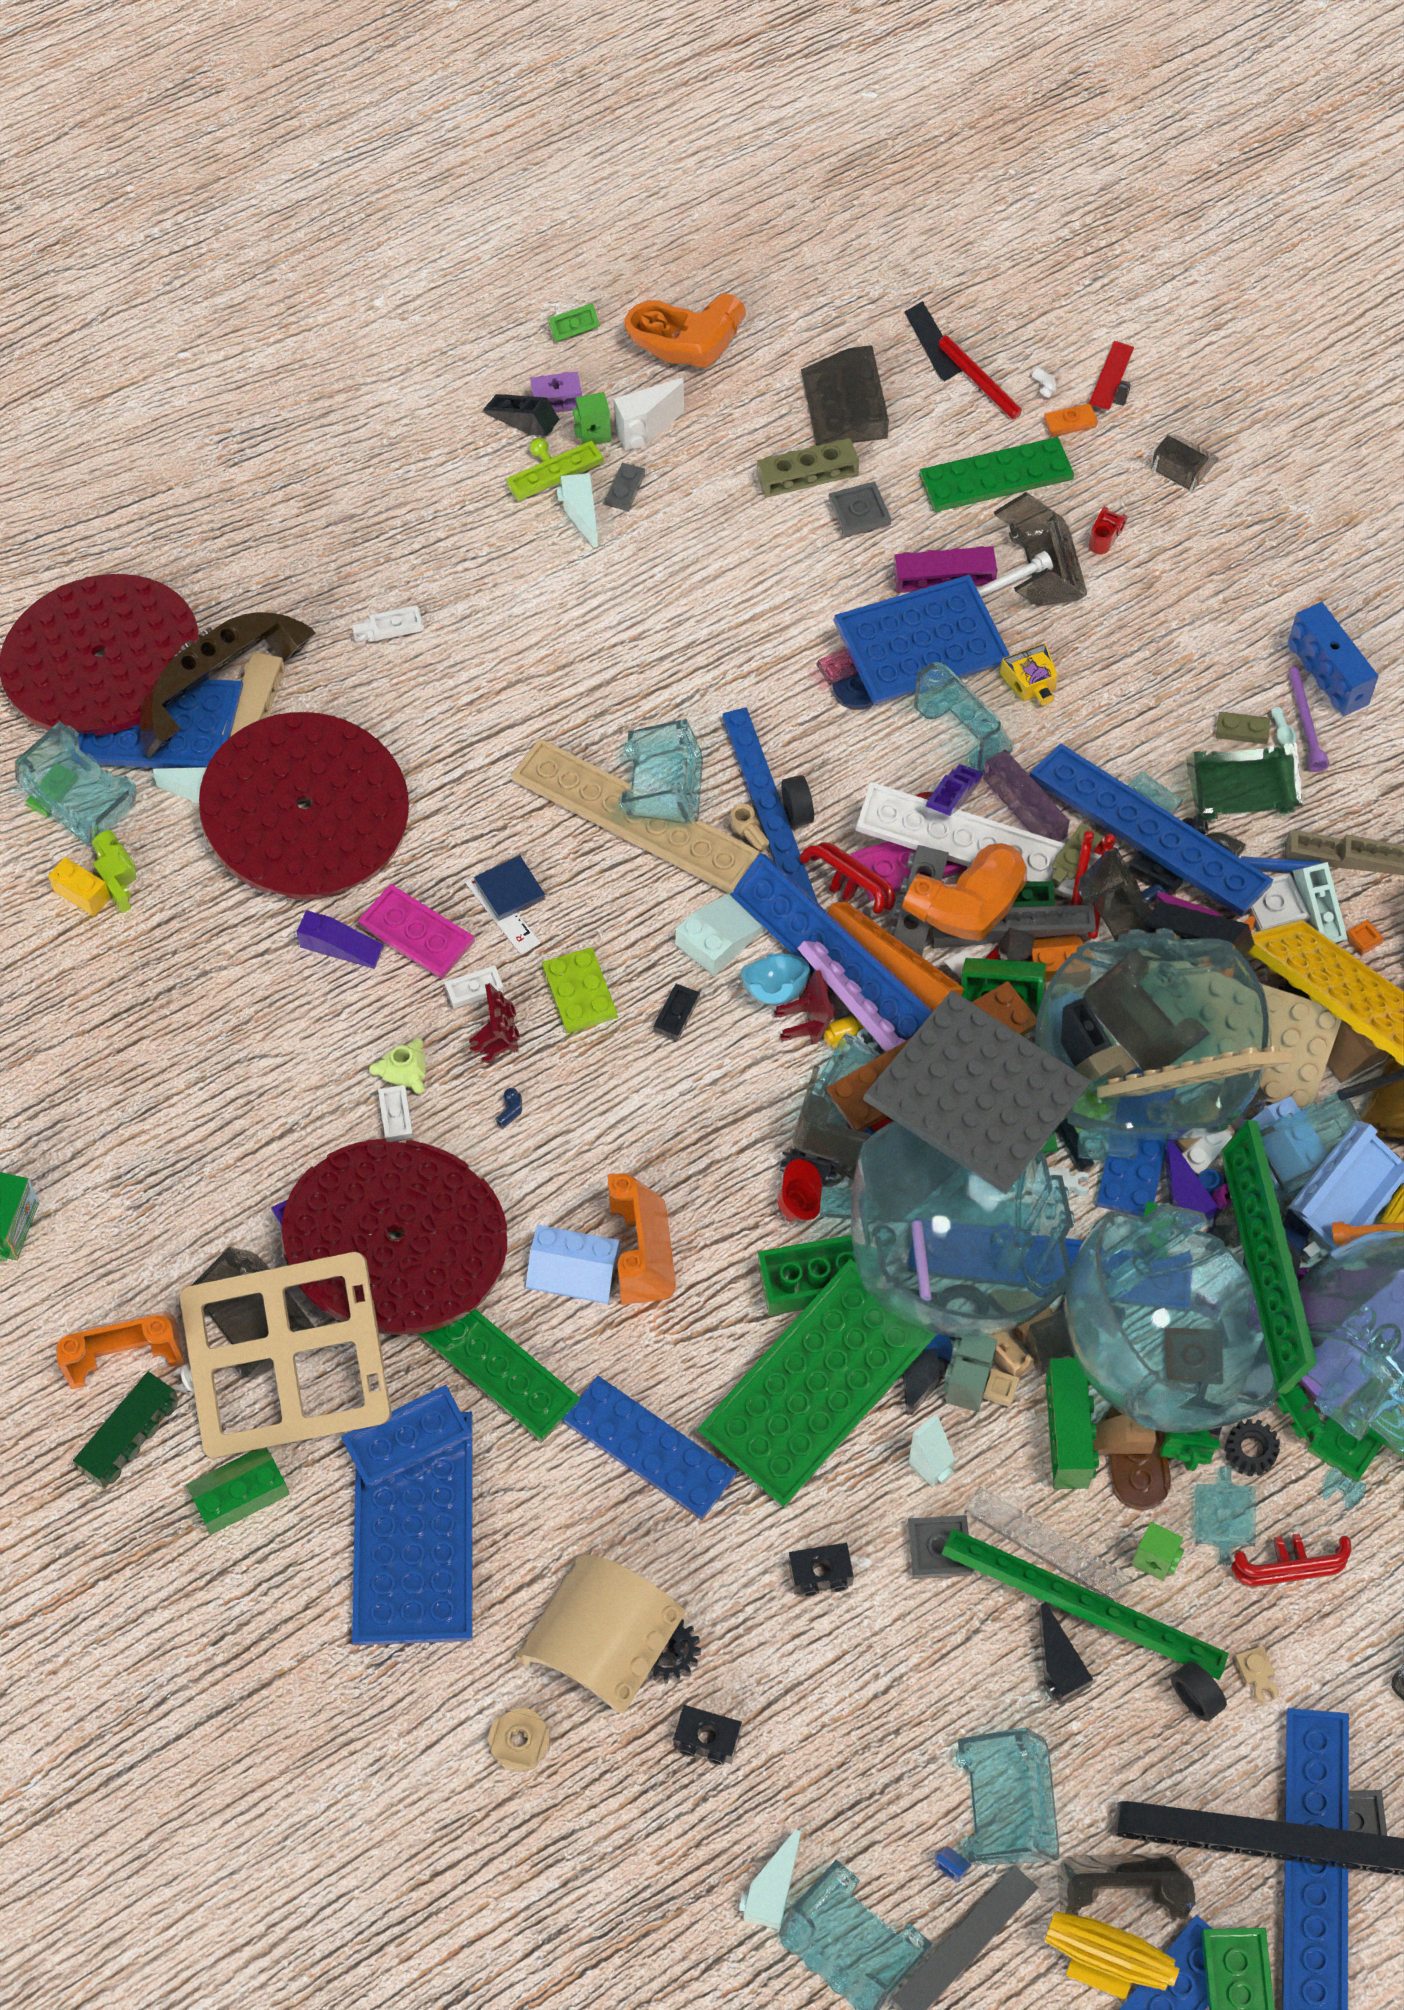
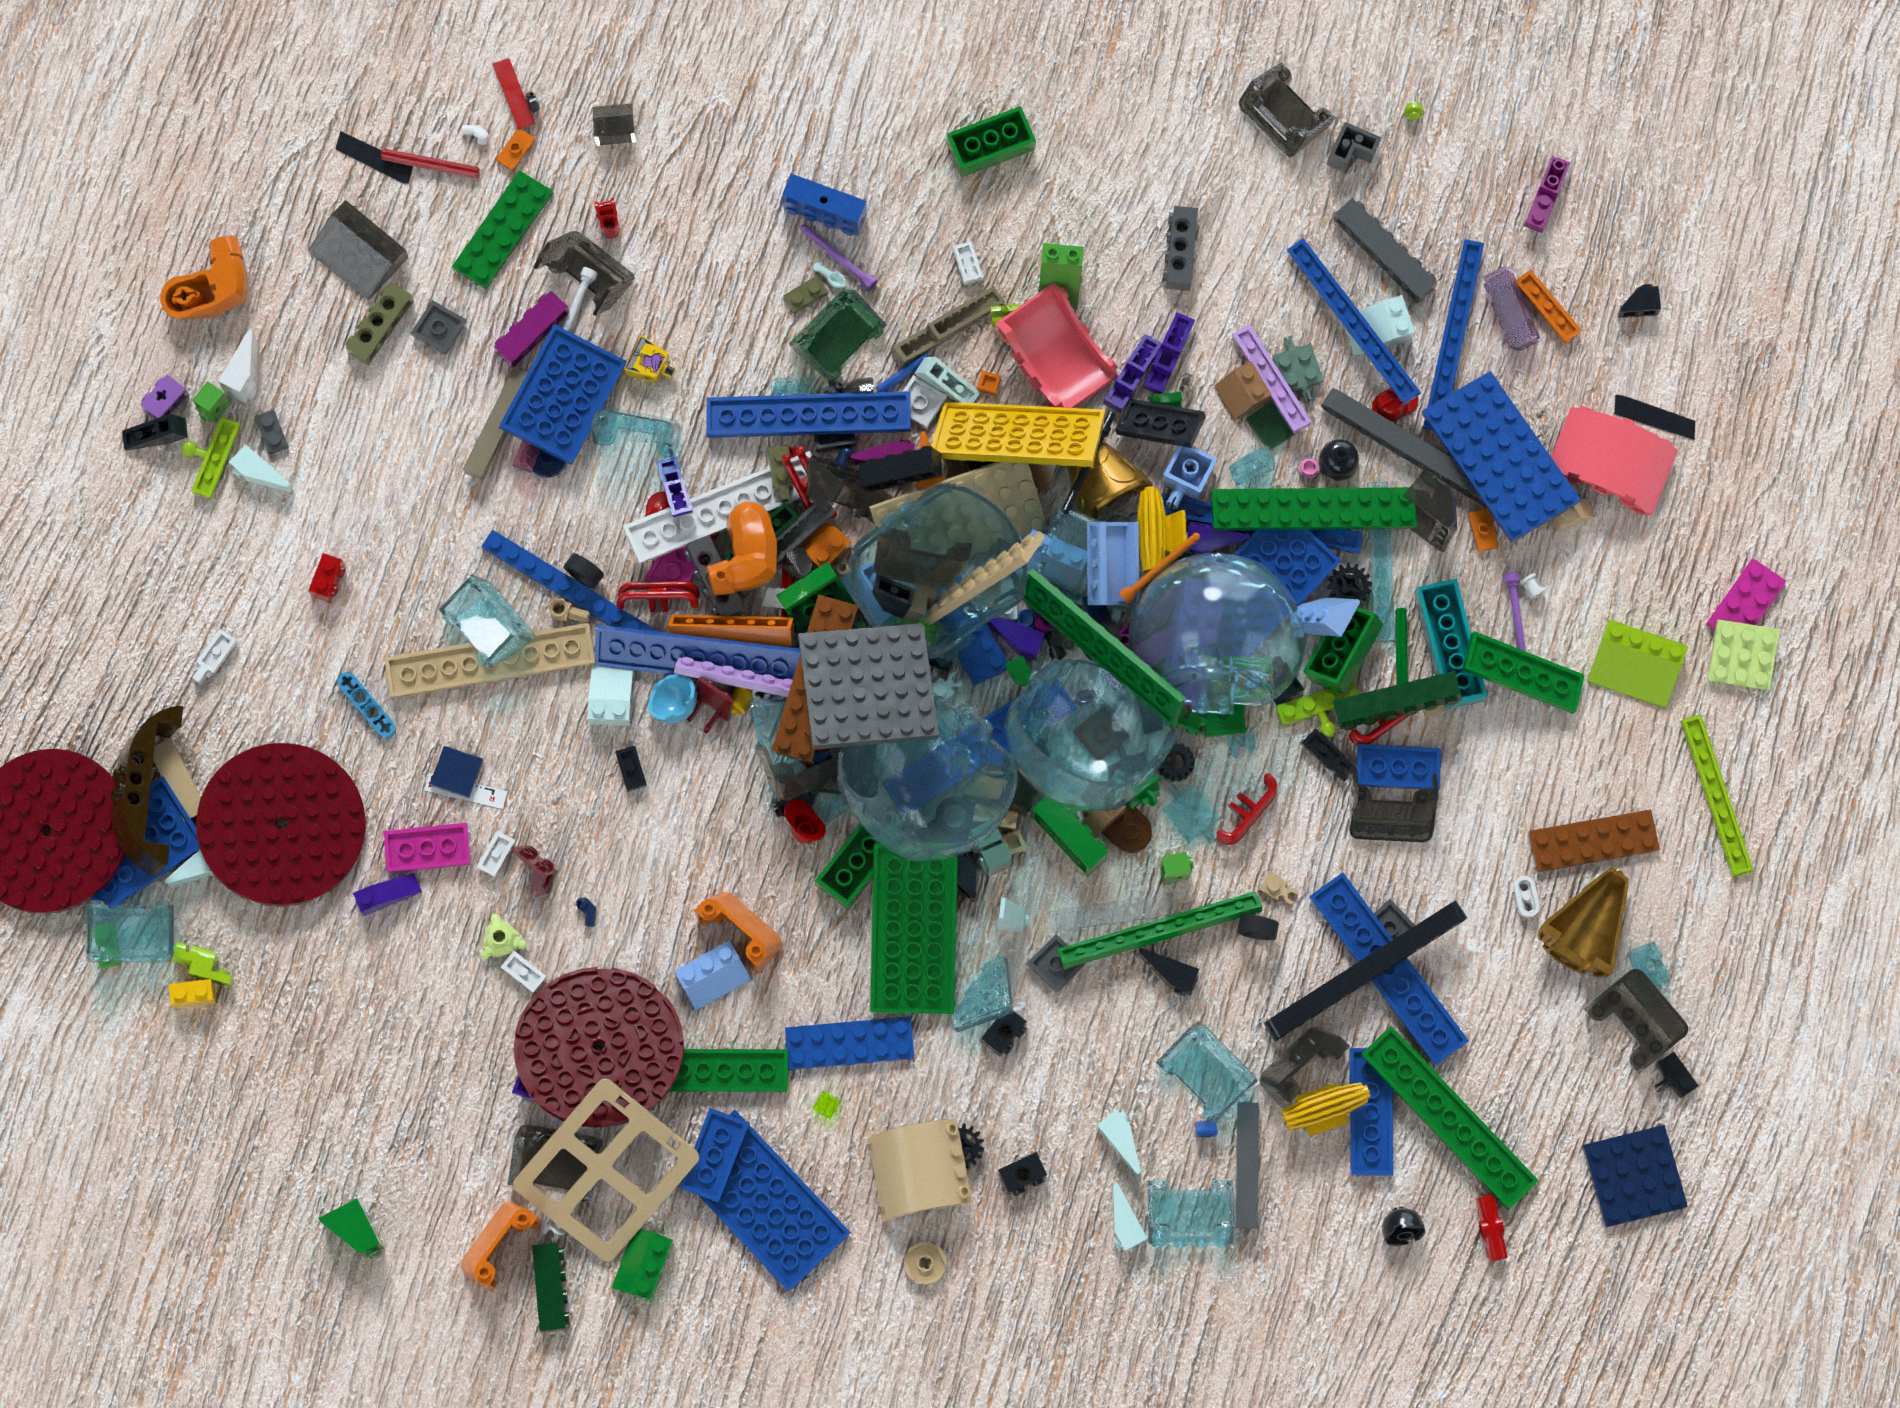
camera: 45 degrees left, 15 degrees up
(484, 768) = (365, 706): none -> dark azure beam
(554, 634) = (327, 577): none -> red brick
(568, 1488) = (826, 1105): none -> clear neon green tile
(573, 322) = (125, 335): bright green plate -> none
(579, 990) = (559, 802): lime plate -> none
(813, 630) = (491, 436): none -> dark tan slope
(832, 1517) = (986, 997): none -> clear light blue plate
(849, 1787) = (1119, 1135): none -> light aqua slope
(921, 1260) = (913, 810): lavender bar -> none
(1025, 797) = (717, 454): clear purple brick -> none

